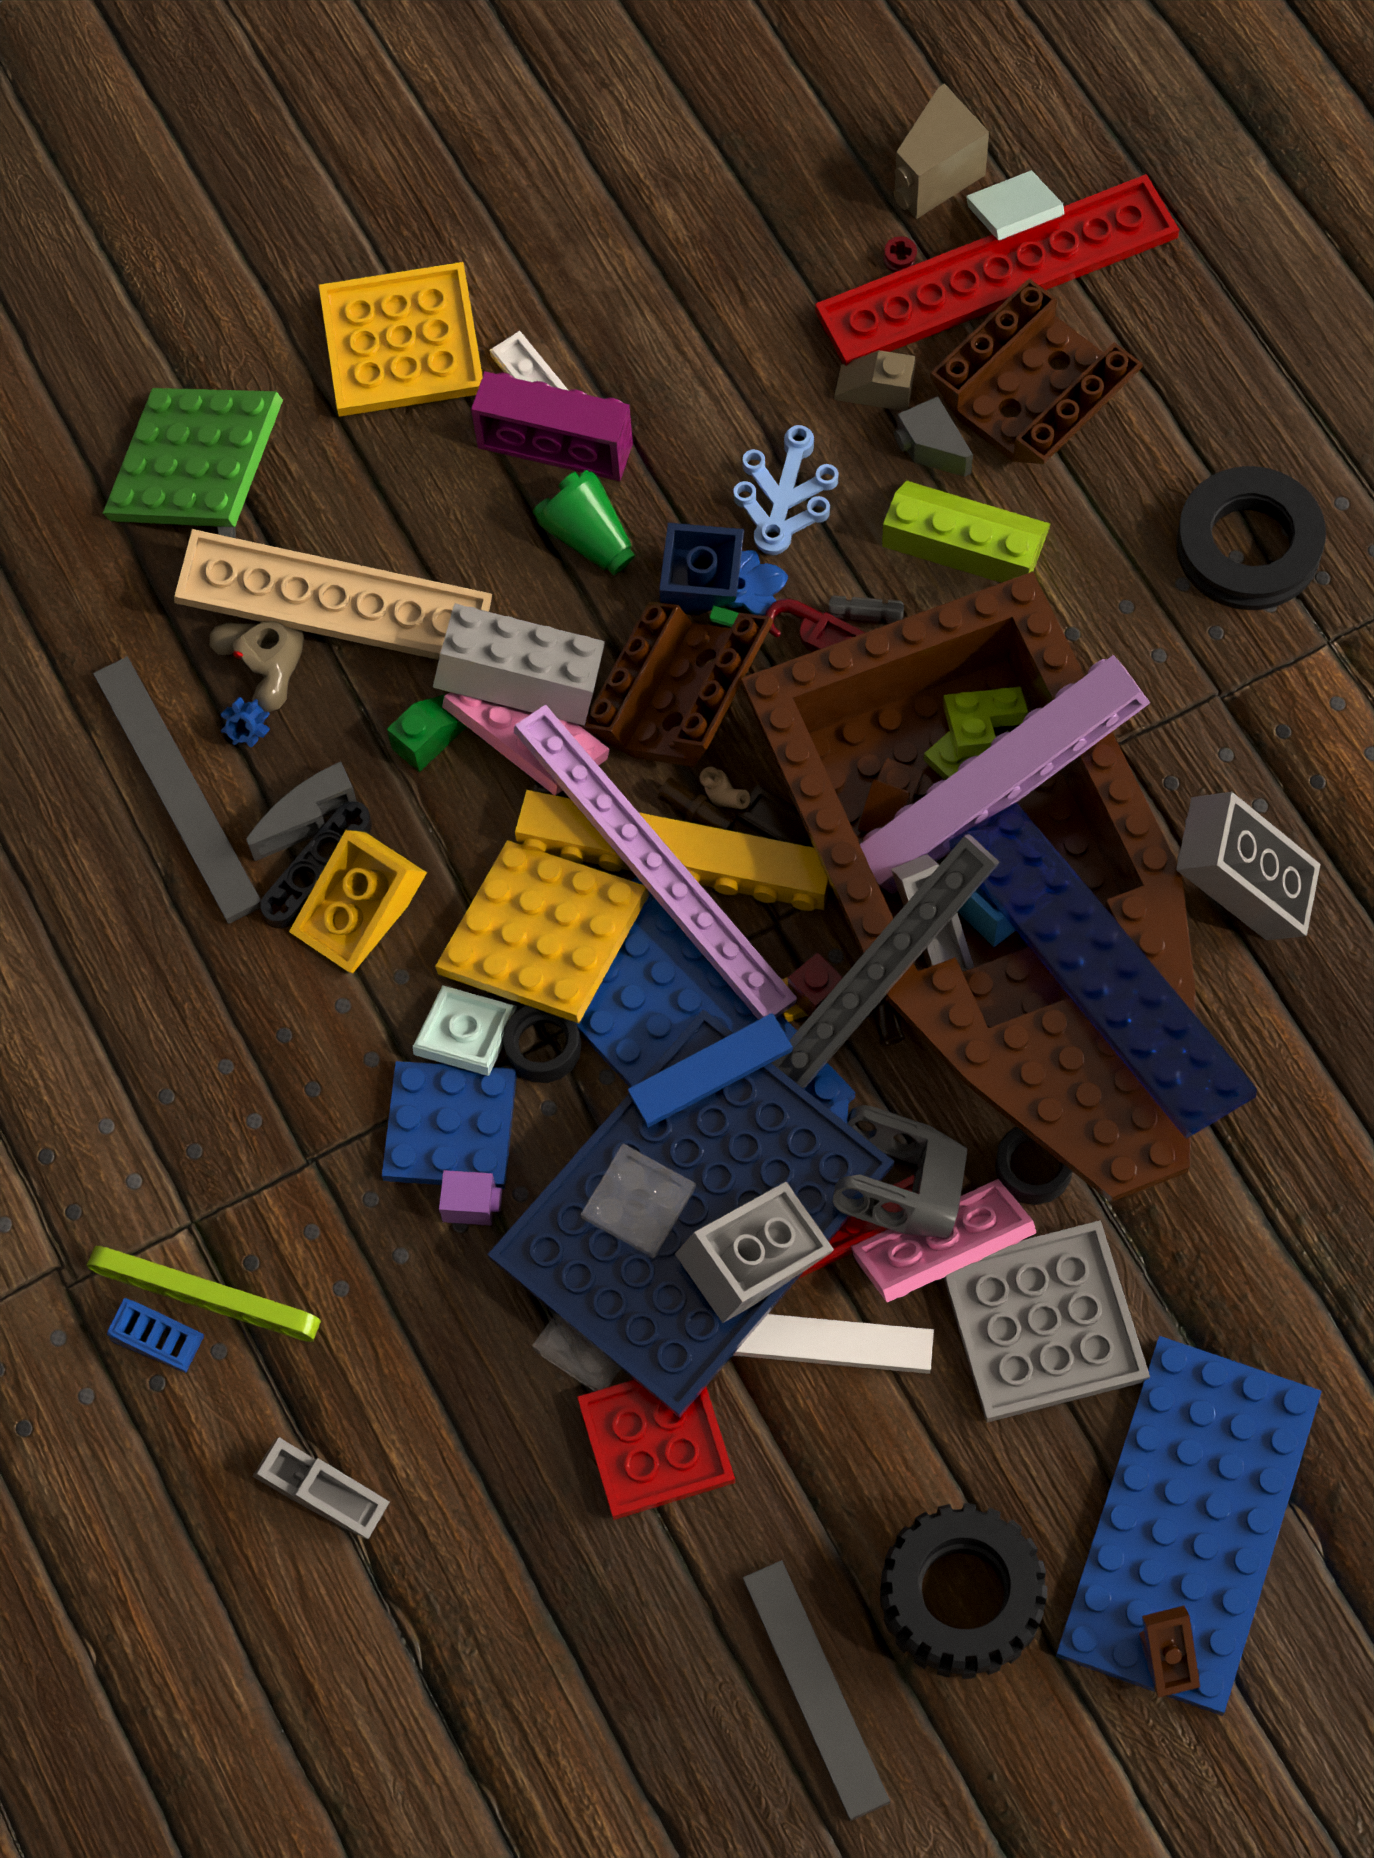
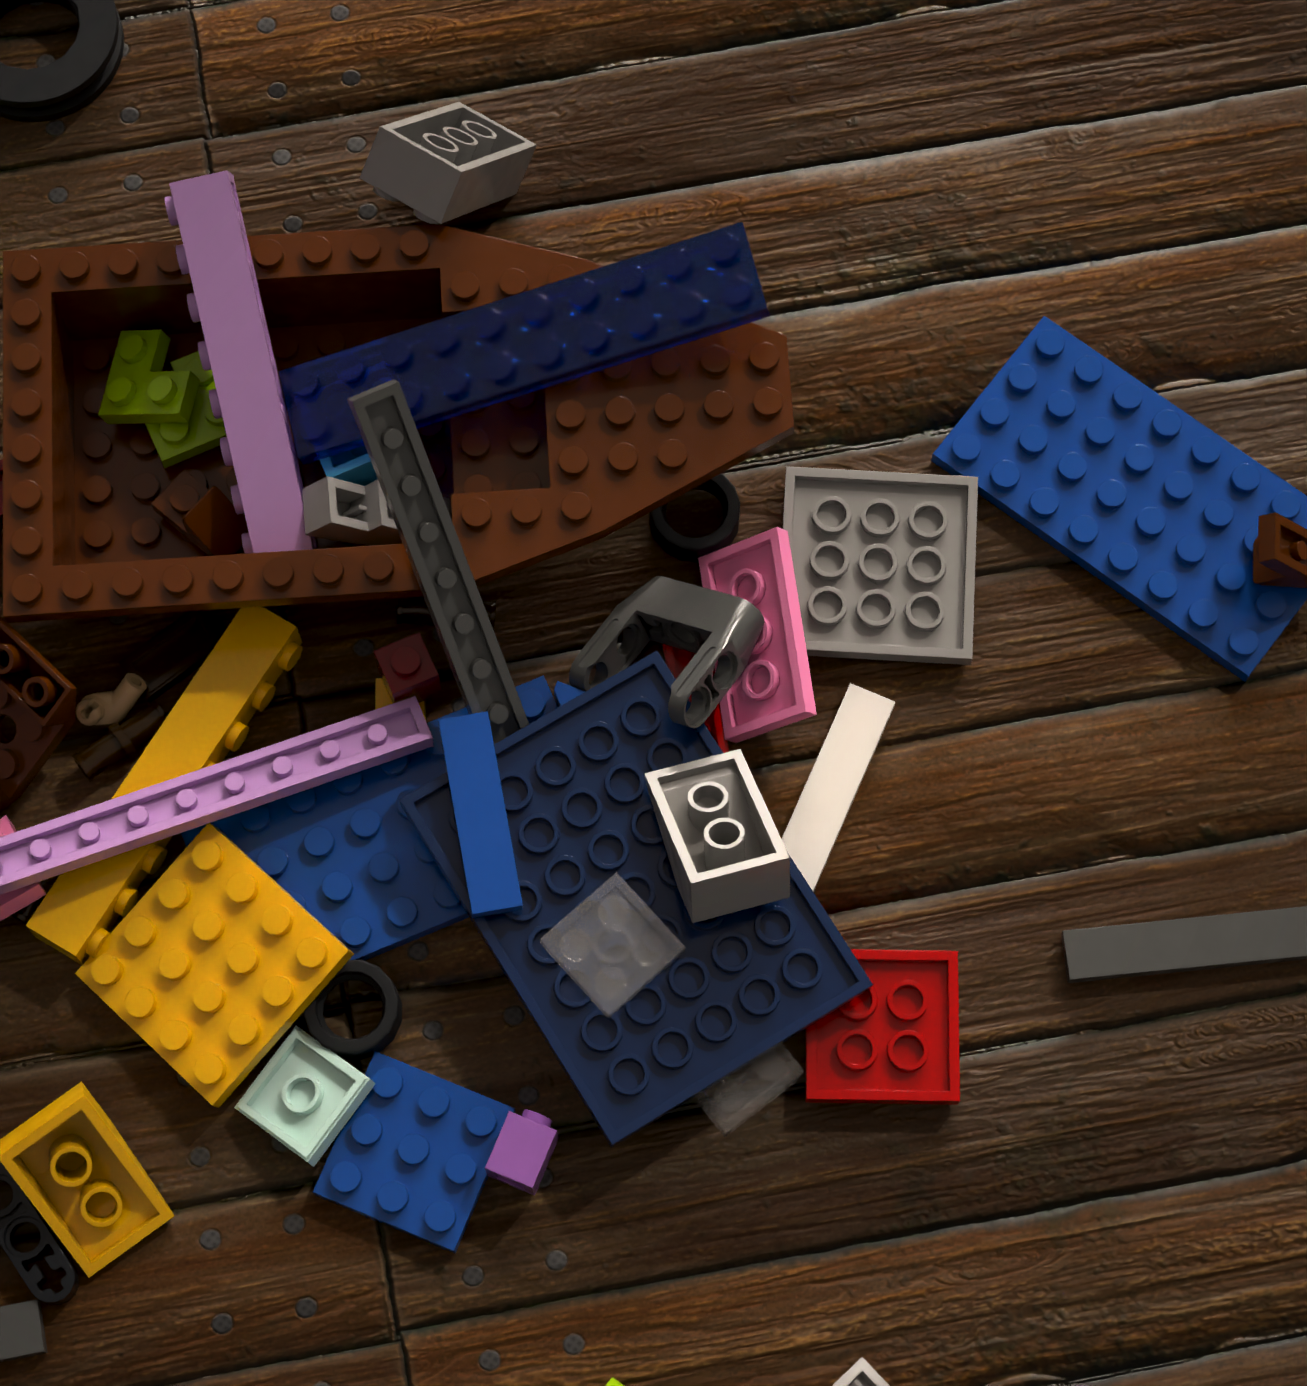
camera: 75 degrees left, 5 degrees up
(973, 1534) = (1181, 688): black tyre -> none

